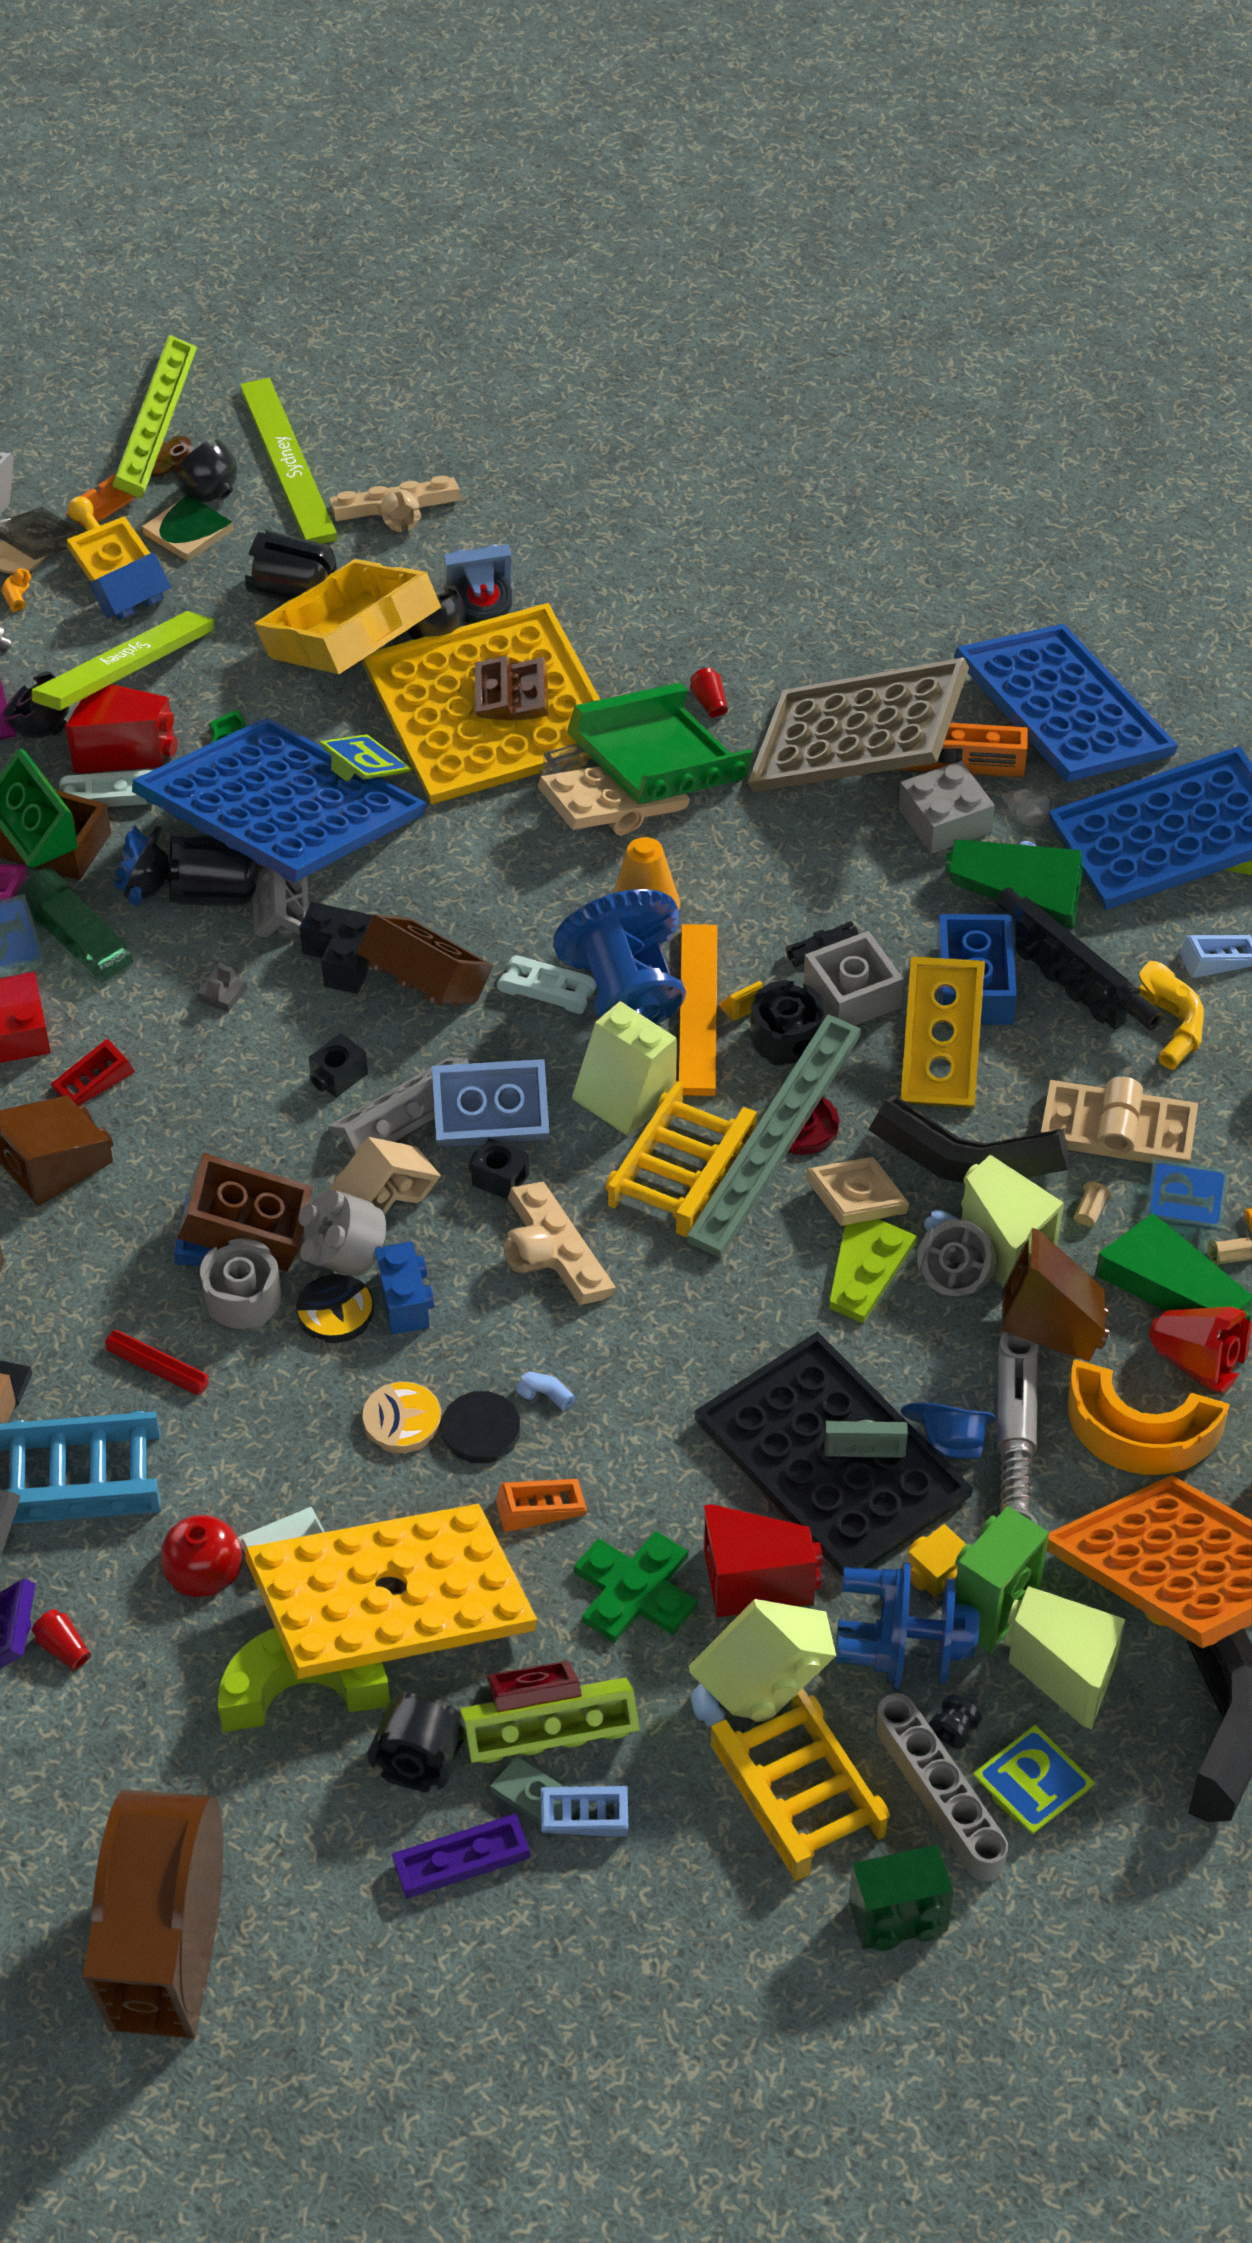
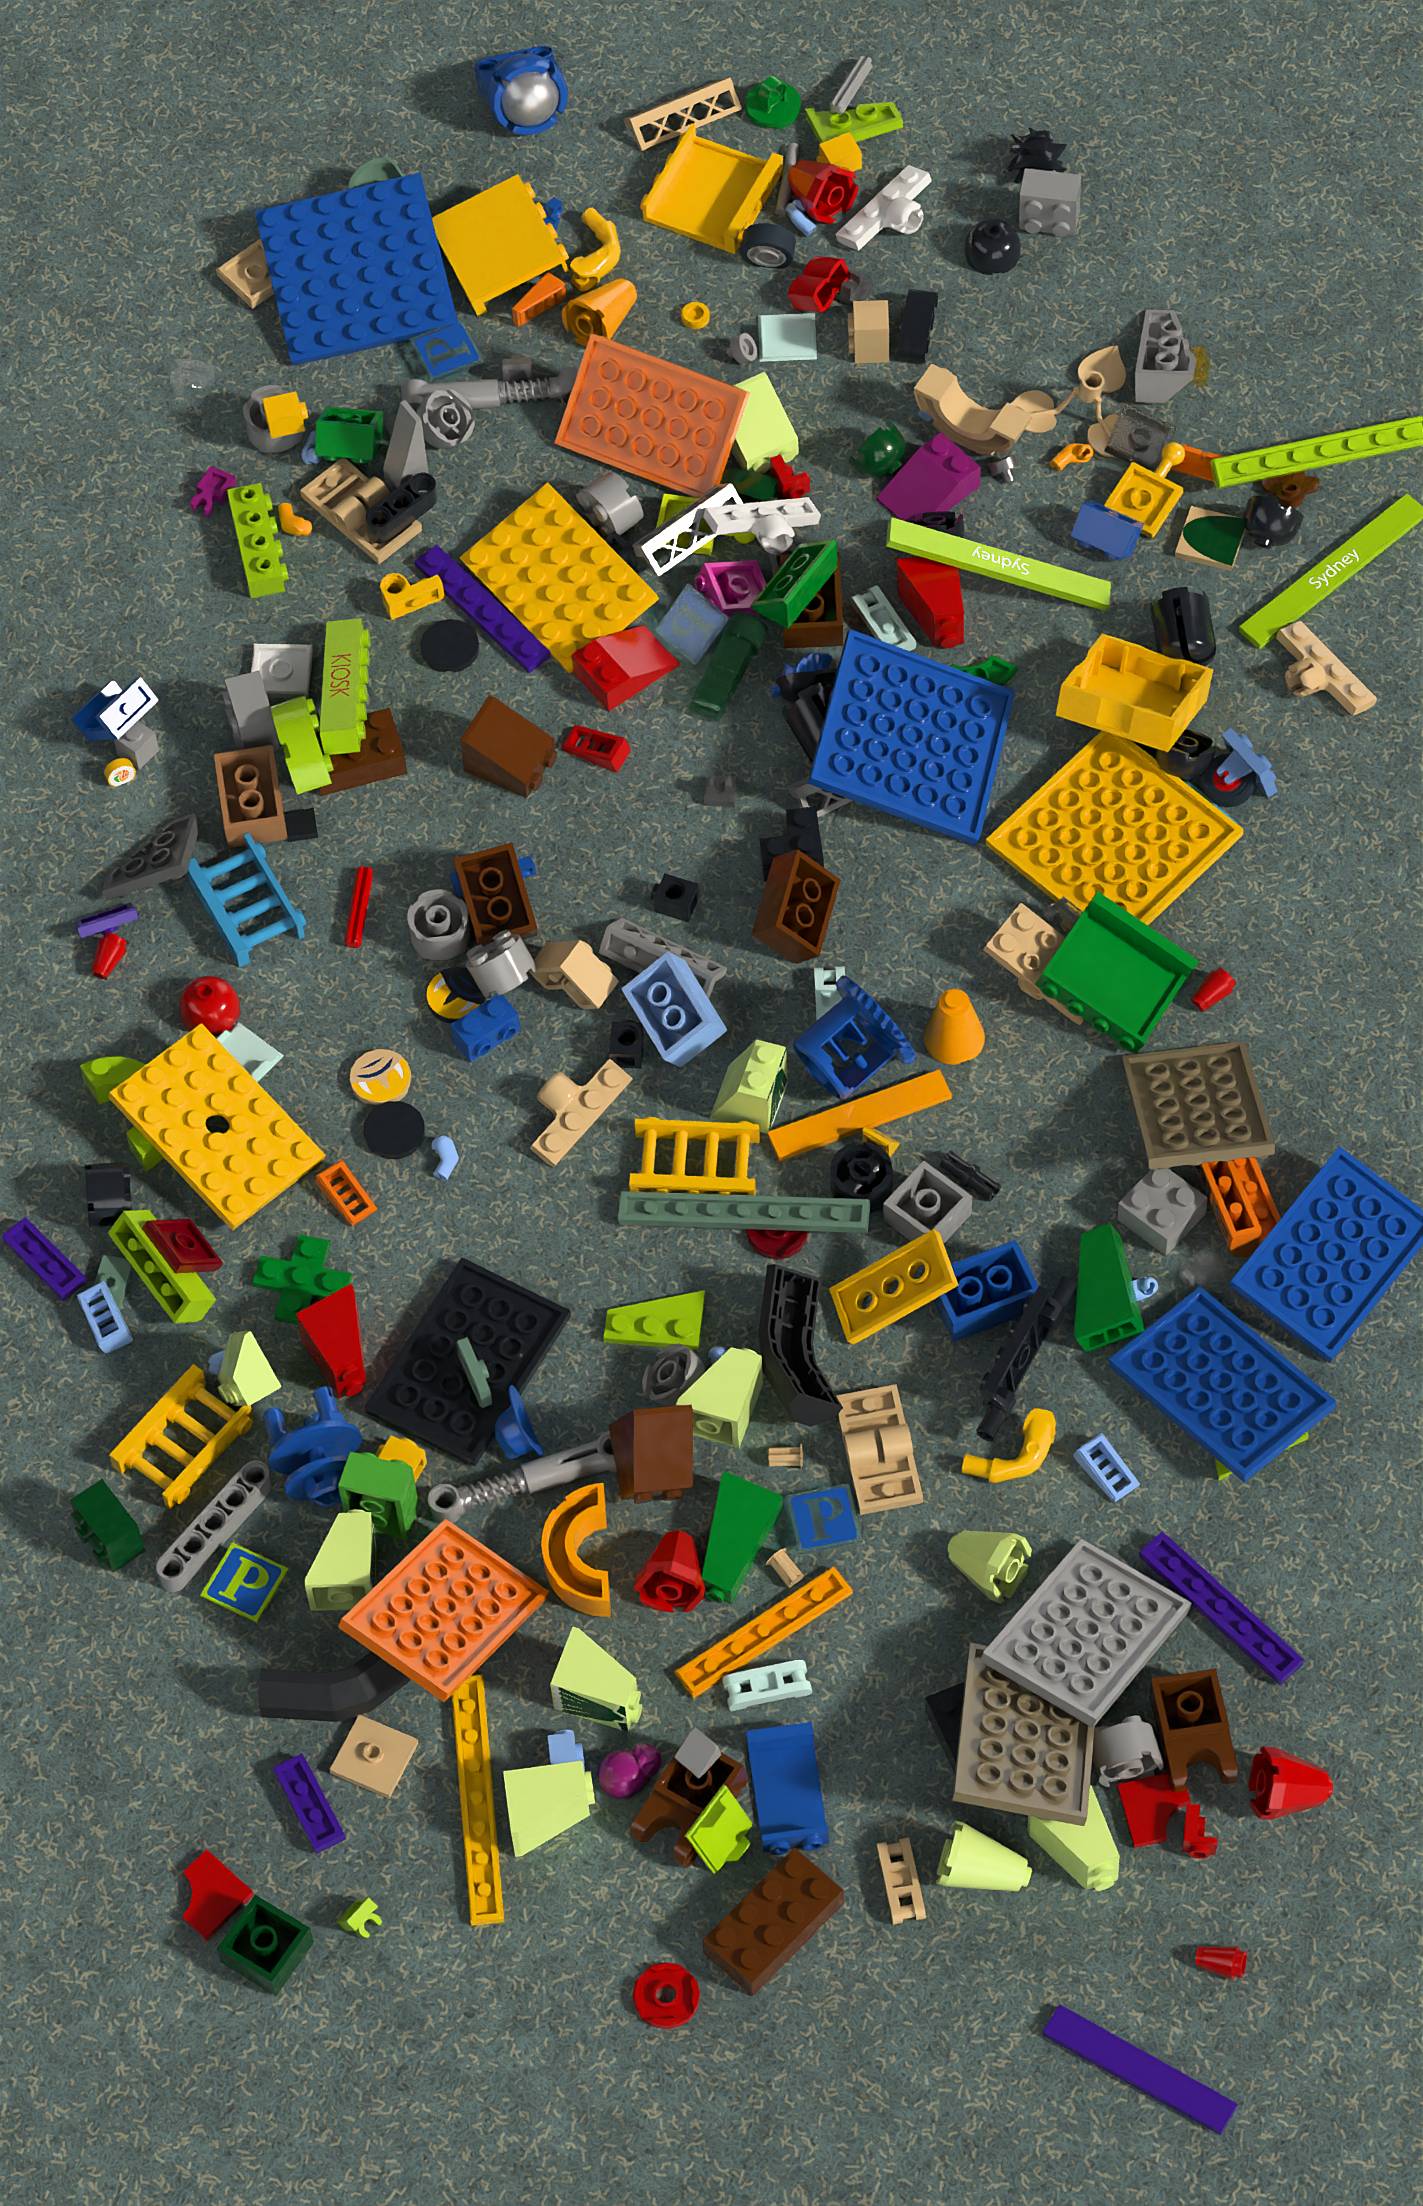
camera: 70 degrees right, 10 degrees up
(362, 756) = (997, 775): piece -> none
(510, 689) = (1124, 844): reddish brown slope -> none
(857, 1191) = (719, 1289): tan plate -> none
(955, 1721) = (271, 1518): black wheel -> none

